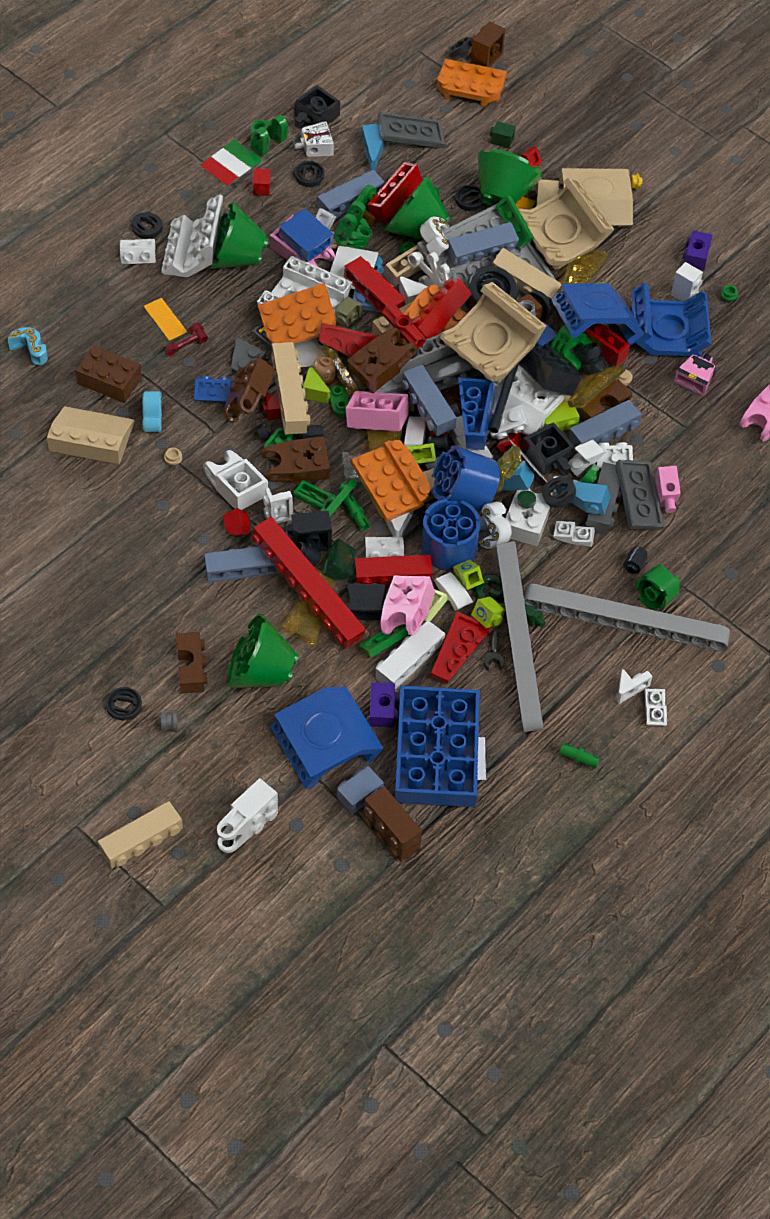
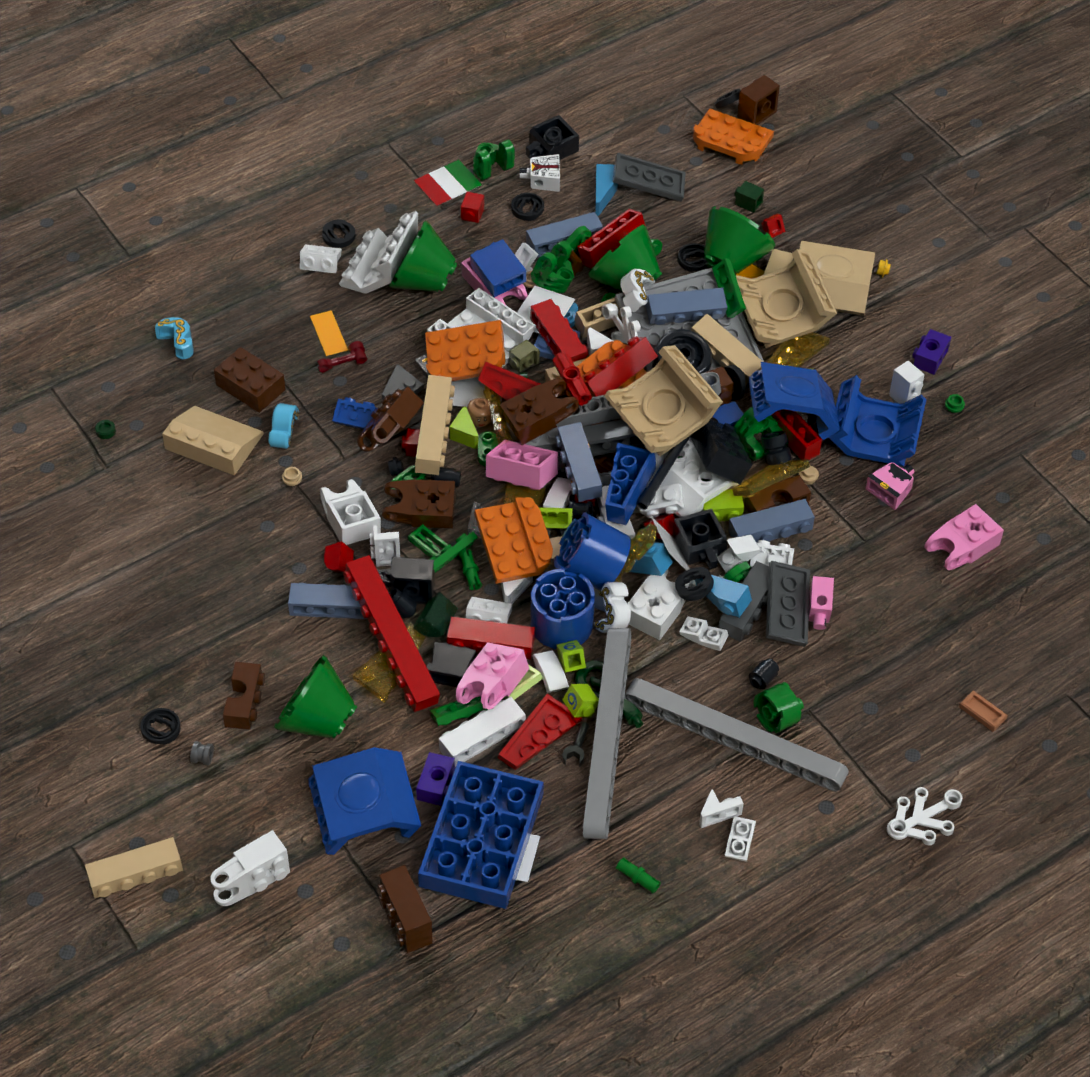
camera: 15 degrees right, 5 degrees down
(358, 788) = (382, 860): sand blue brick -> none
(526, 499) = (656, 586): dark green tile -> none

